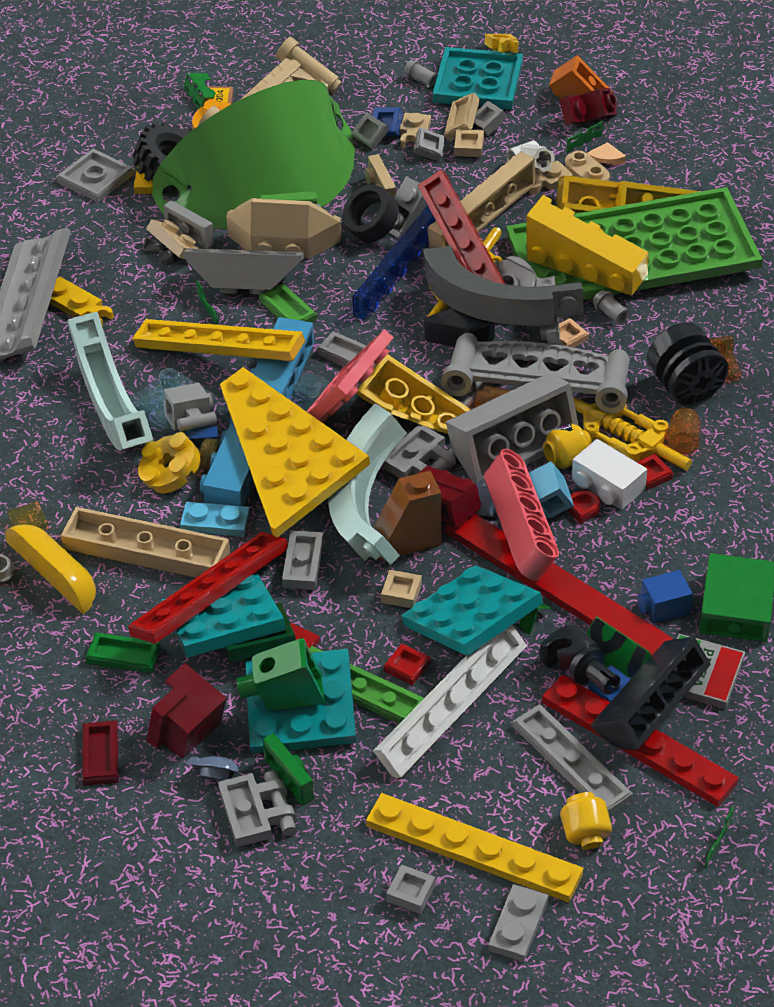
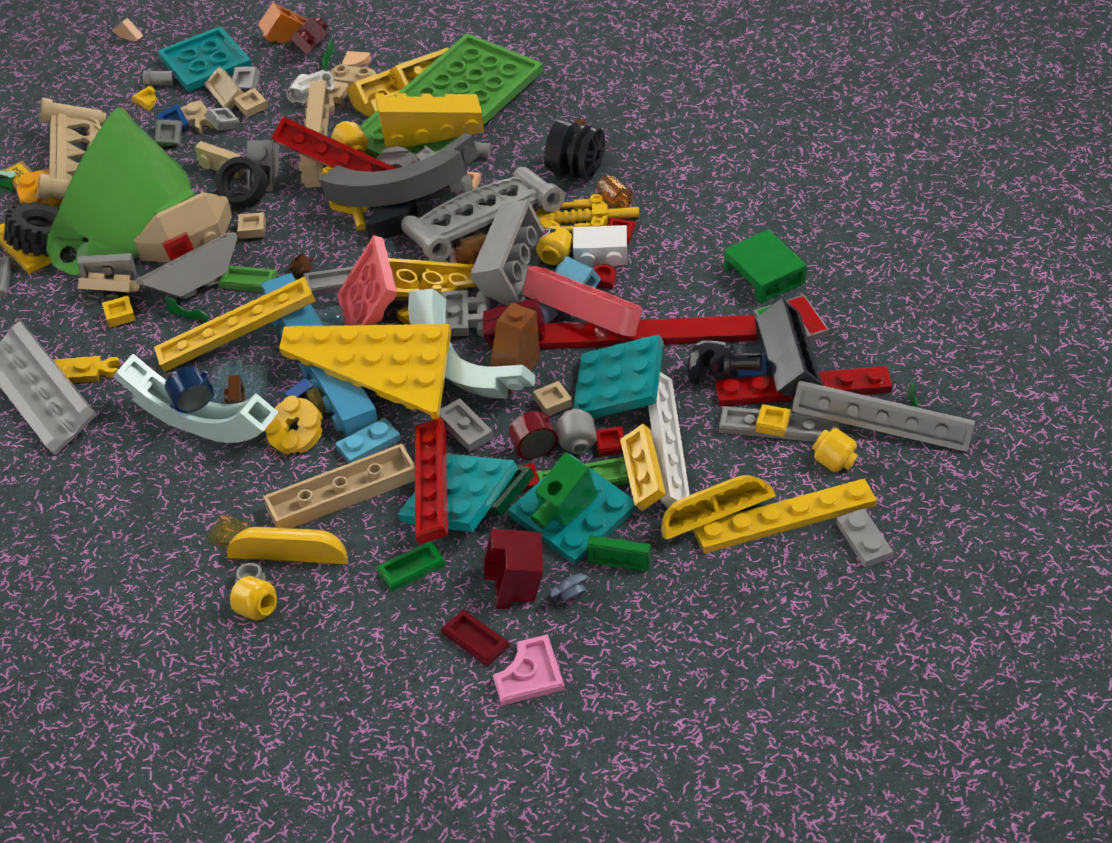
camera: 40 degrees left, 0 degrees up
(106, 818) = (531, 672): none -> bright pink tile
(109, 372) = (188, 389): none -> clear blue piece
(151, 402) = (235, 390): none -> reddish brown plate
(157, 270) = (118, 311): none -> yellow plate
(189, 407) = (271, 379): light grey brick -> none
(246, 812) = (623, 599): light grey plate -> none
(253, 240) = (178, 246): none -> red tile
(338, 322) = (300, 265): none -> reddish brown plate
(338, 609) = (532, 435): none -> dark red piece
(341, 259) = (251, 225): none -> tan plate
(382, 632) = (576, 431): none -> light grey head
(391, 706) = (642, 467): none -> yellow plate
(392, 266) = (297, 205): clear blue plate -> none
(393, 87) = (145, 98): none -> yellow tile
(411, 889) = (781, 566): light grey plate -> none
(412, 786) = (714, 504): none -> yellow brick
(444, 14) = (127, 31): none -> light nougat tile
(499, 229) = (350, 135): none -> yellow head
(502, 42) = (196, 27): yellow plate -> none
(563, 750) = (773, 420): none -> yellow tile
(618, 648) = (742, 338): slope -> none
(665, 597) = (722, 293): blue brick -> none
(666, 823) = (883, 416): none -> light grey plate

